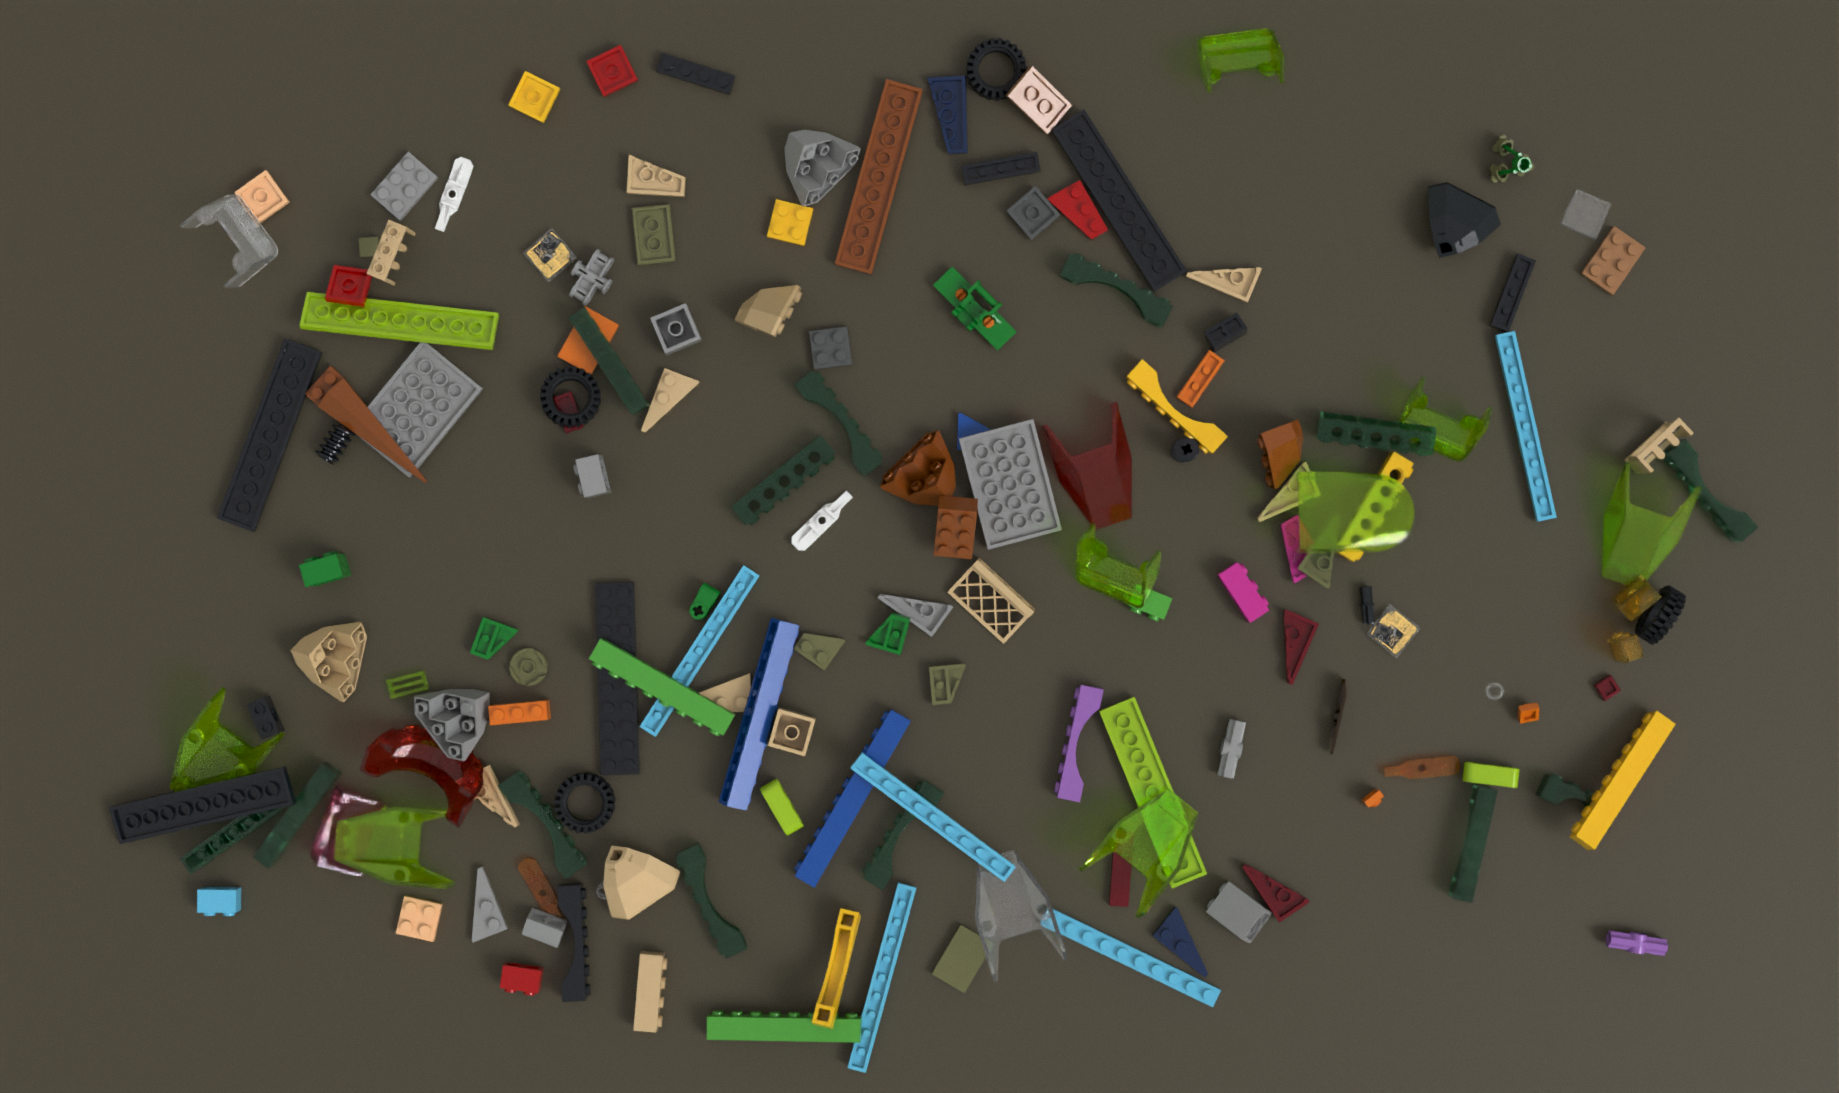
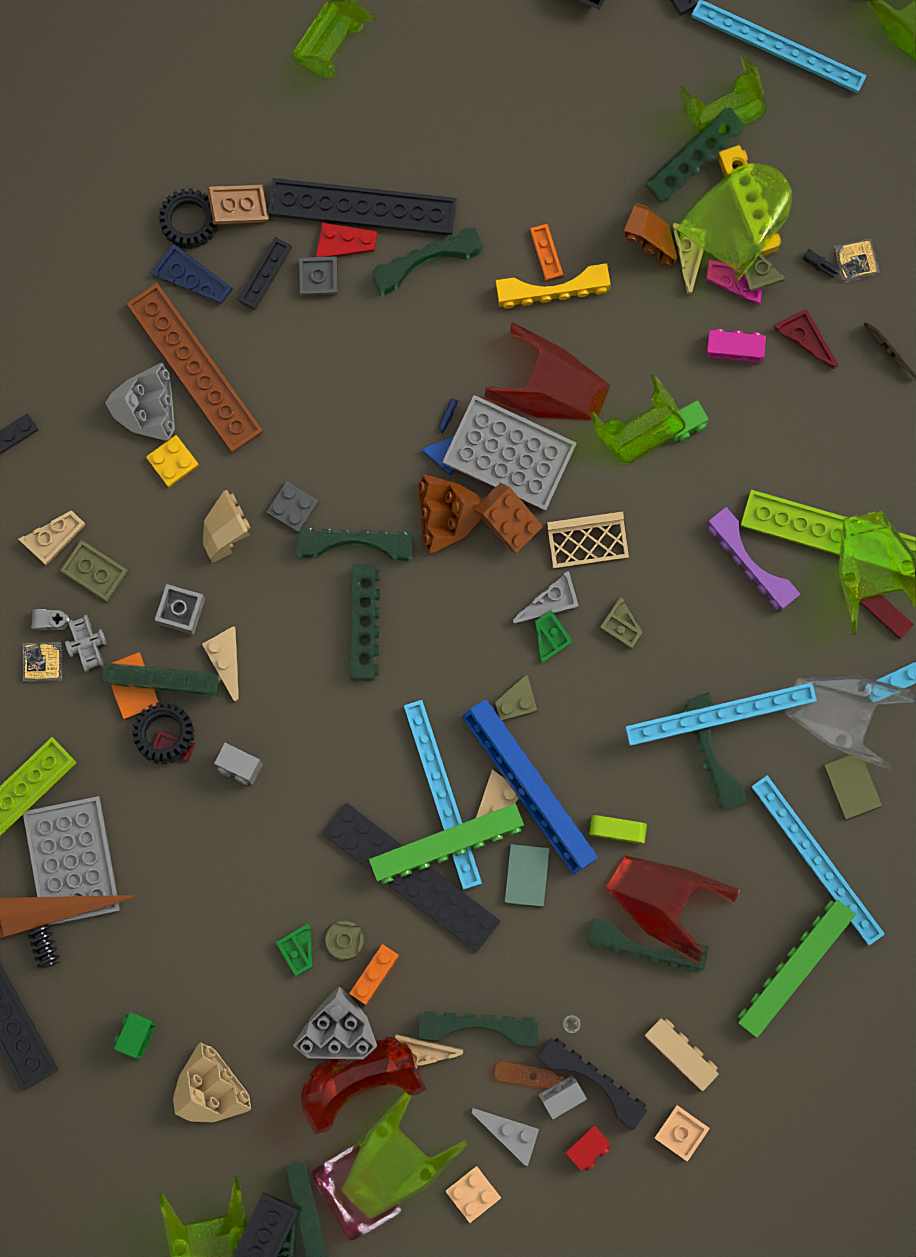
camera: 45 degrees left, 10 degrees down
(265, 717) = (211, 1183): black brick -> none
(391, 688) = (273, 1042): clear neon green tile -> none
(565, 815) = (488, 1006): black tyre -> none
(584, 231) = (46, 620): none -> light grey piece
(591, 1038) = (682, 1133): none -> light nougat plate
(635, 881) = (583, 991): tan brick -> none
(690, 765) = (527, 875): none -> sand green tile
(706, 598) = (405, 757): green piece -> none
(754, 880) = (656, 896): none -> clear red windscreen
(792, 731) = (564, 771): tan brick -> none
(813, 529) = (419, 630): white piece -> none
(837, 969) = (781, 886): yellow arch -> none
(850, 801) = (656, 772): blue brick -> none
(970, 313) = (353, 381): green piece -> none
(1003, 409) = (447, 415): none -> dark blue piece
(1191, 446) = (590, 302): black piece -> none
(1225, 332) = (526, 205): black hinge -> none
(1231, 748) = (850, 448): light grey piece -> none
(1233, 282) = (494, 171): tan wing -> none

